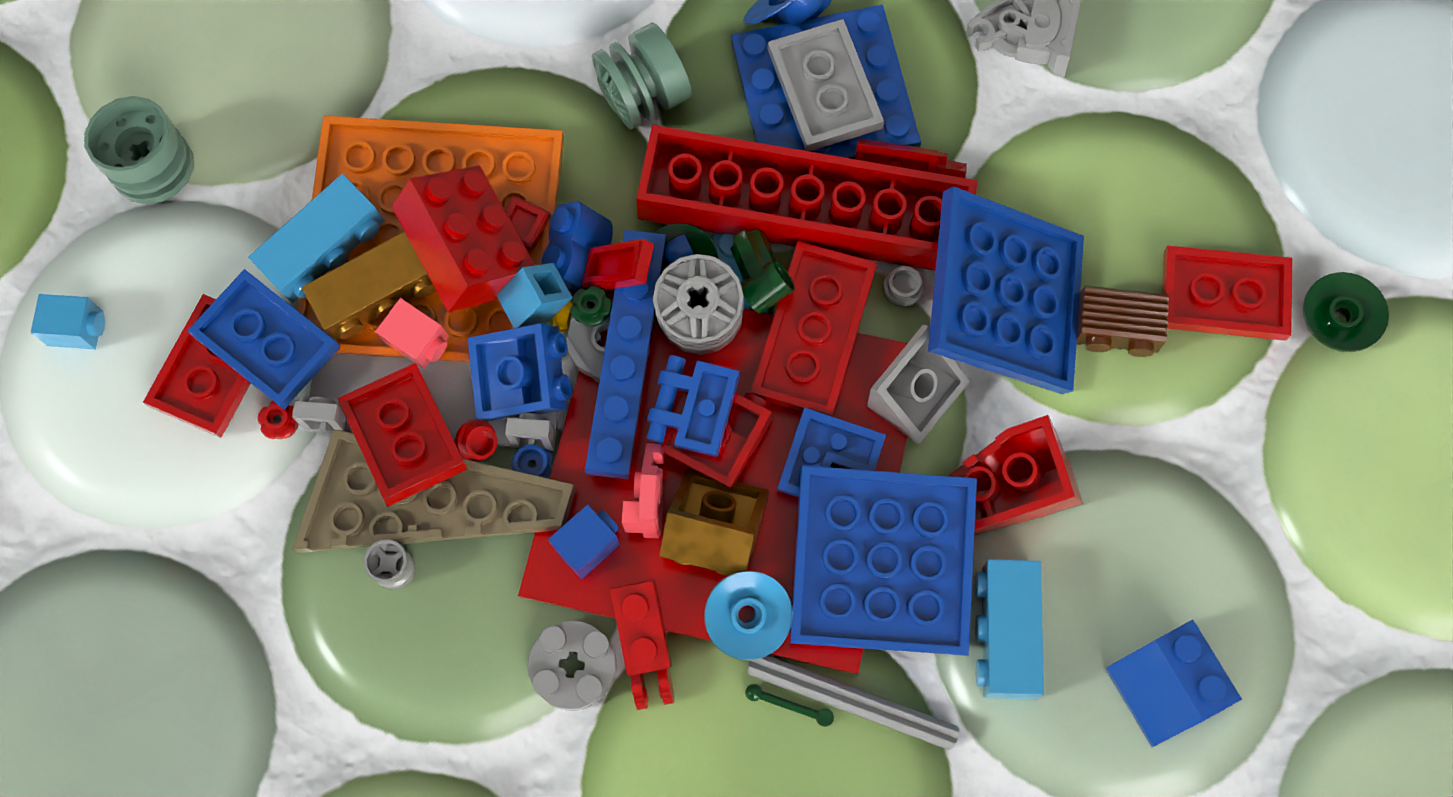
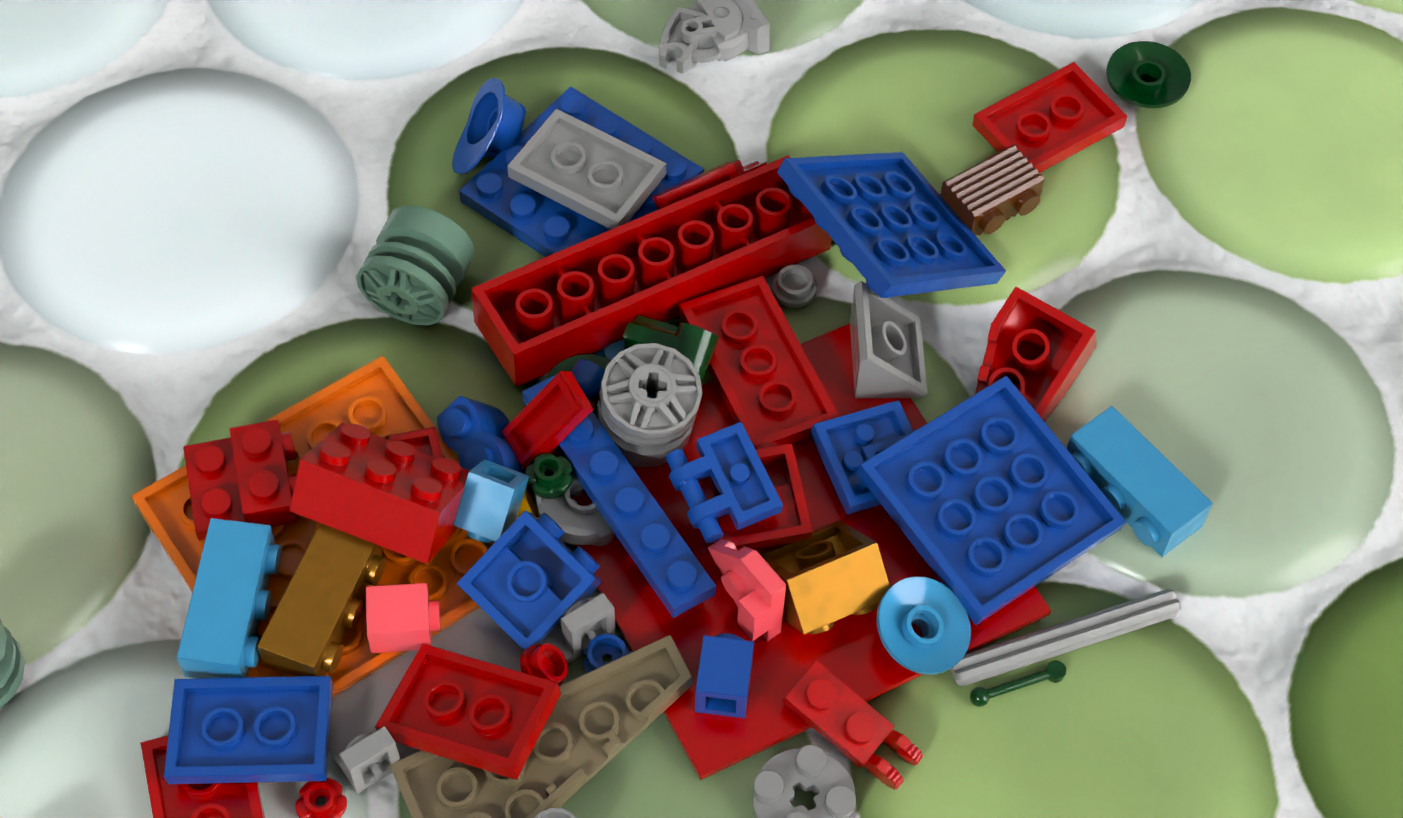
camera: 45 degrees left, 15 degrees down
(392, 152) = (242, 477): none -> red plate
(1173, 683) = (1293, 426): blue slope -> none

